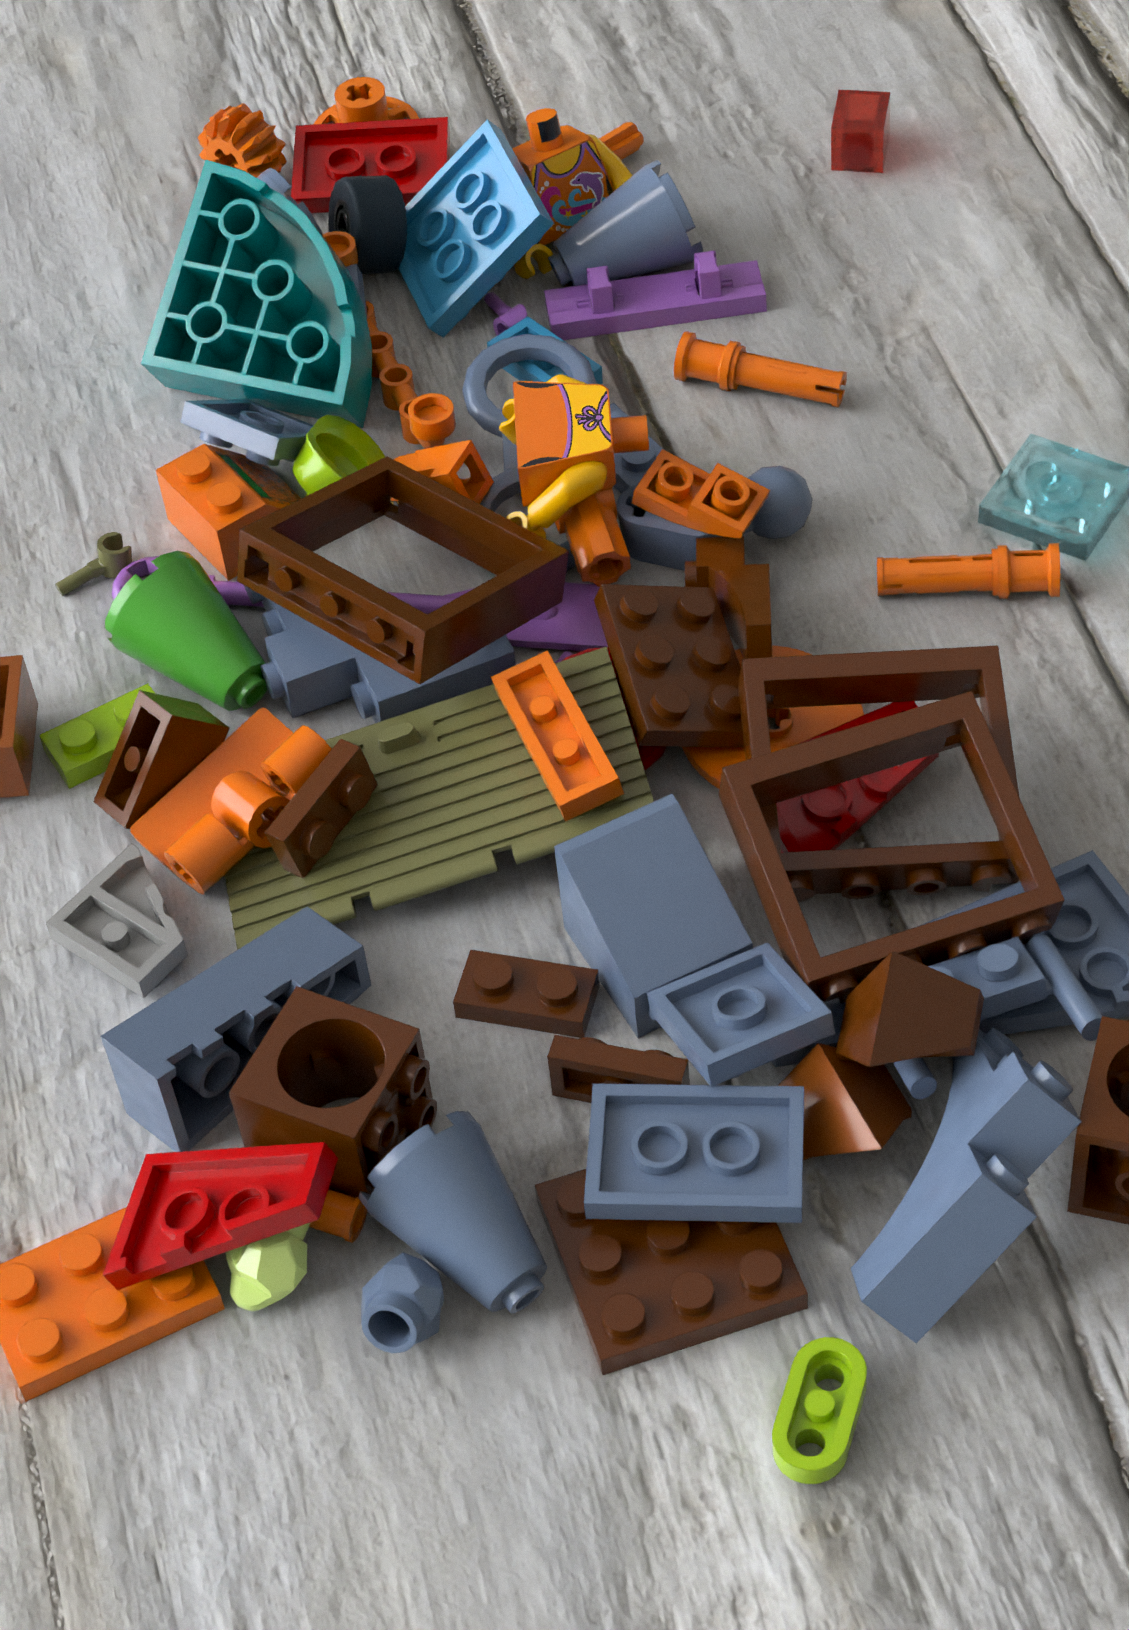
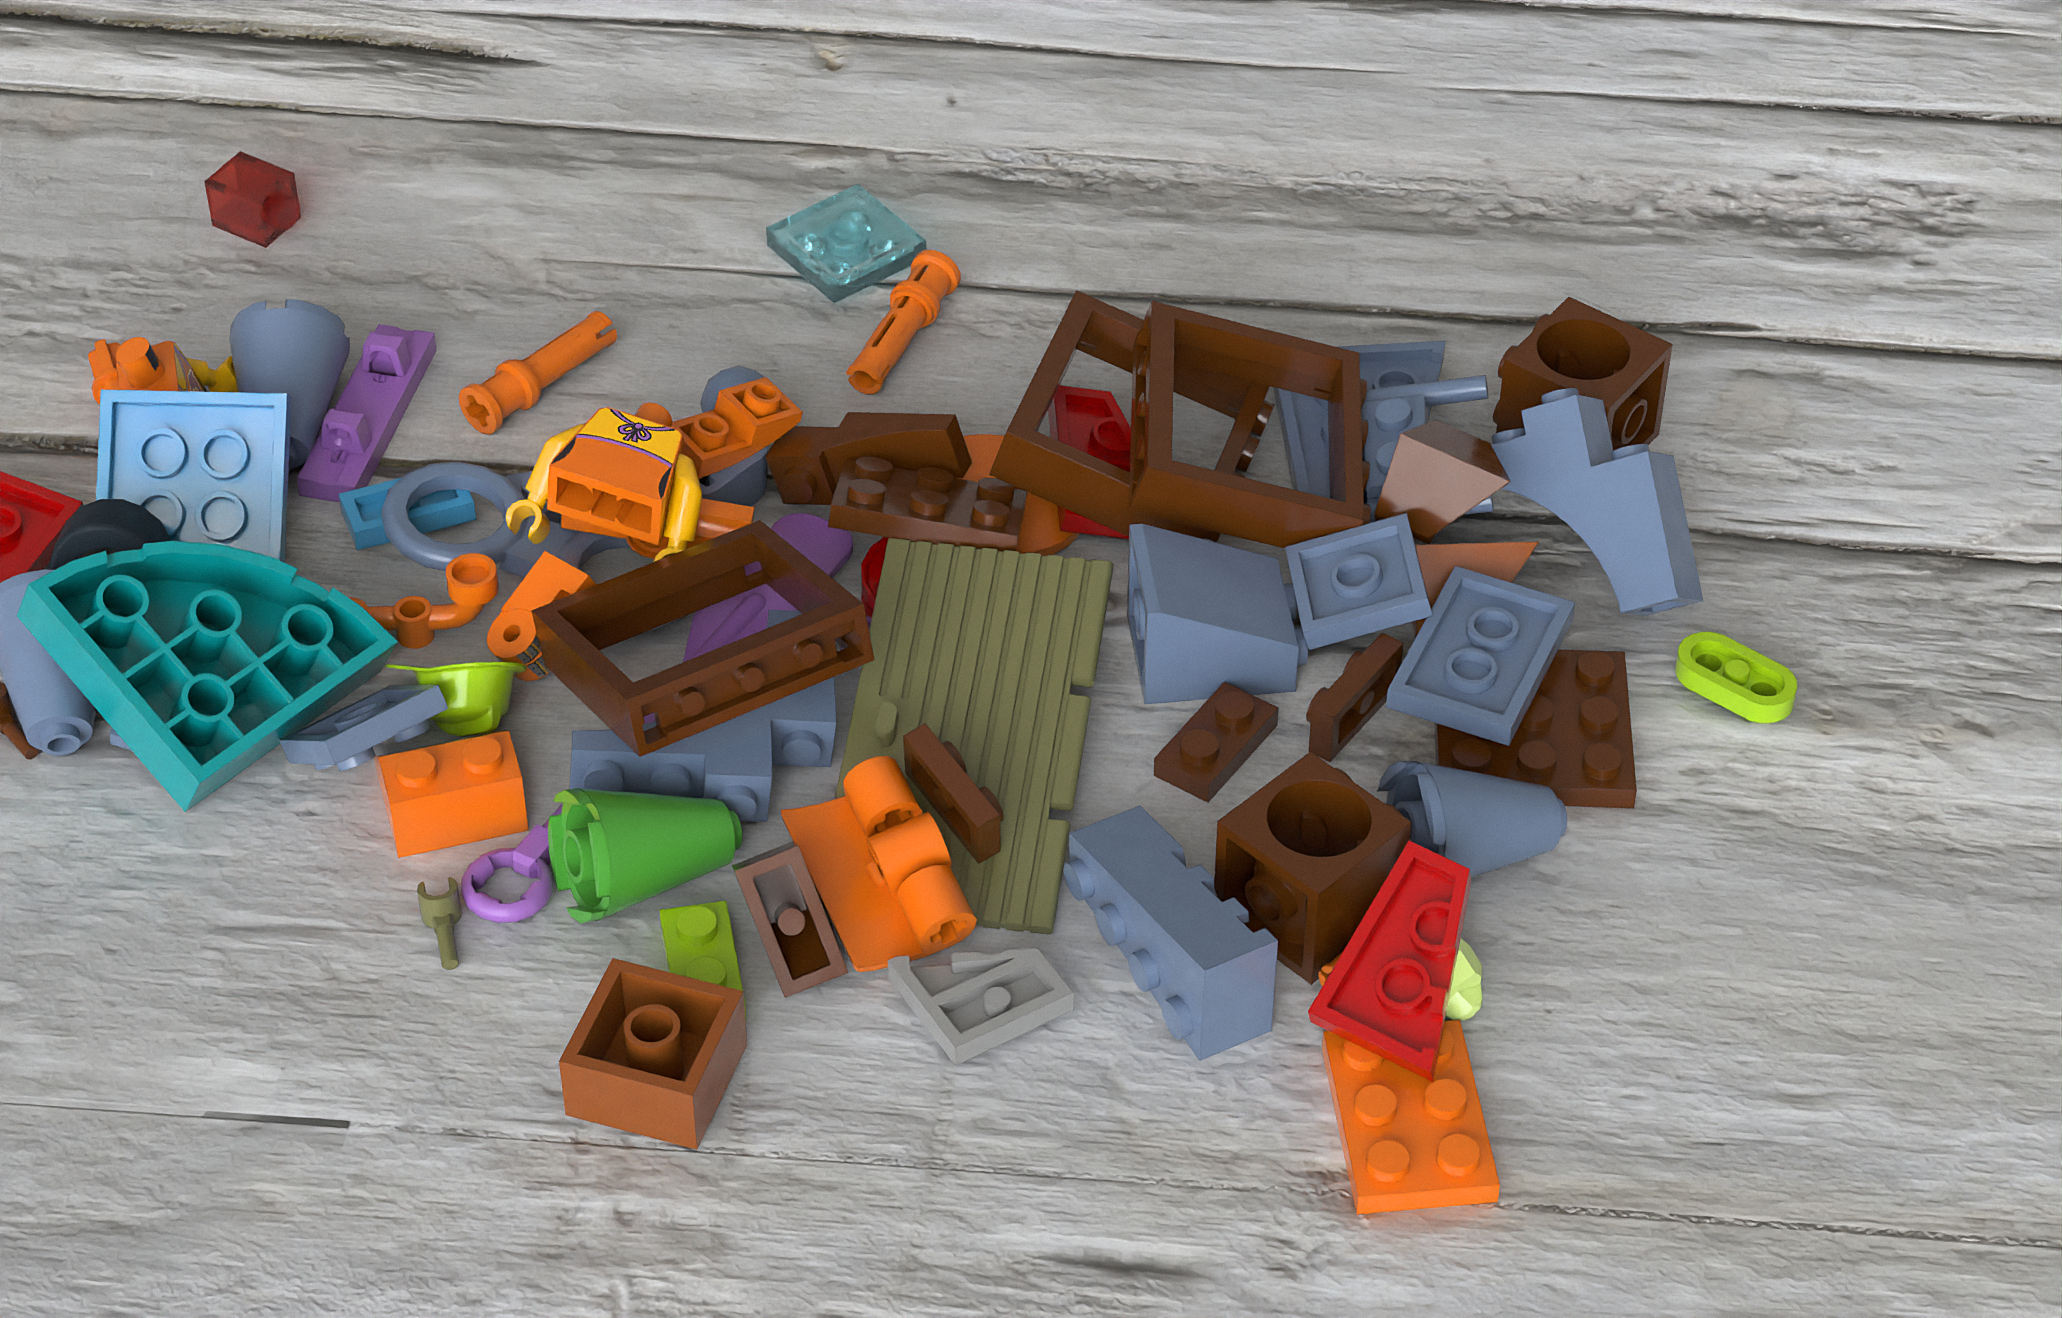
camera: 75 degrees left, 5 degrees down
(402, 1304) = (1533, 891): sand blue rock -> none
(507, 315) = (322, 514): medium lavender hand -> none
(557, 736) = (989, 591): orange plate -> none

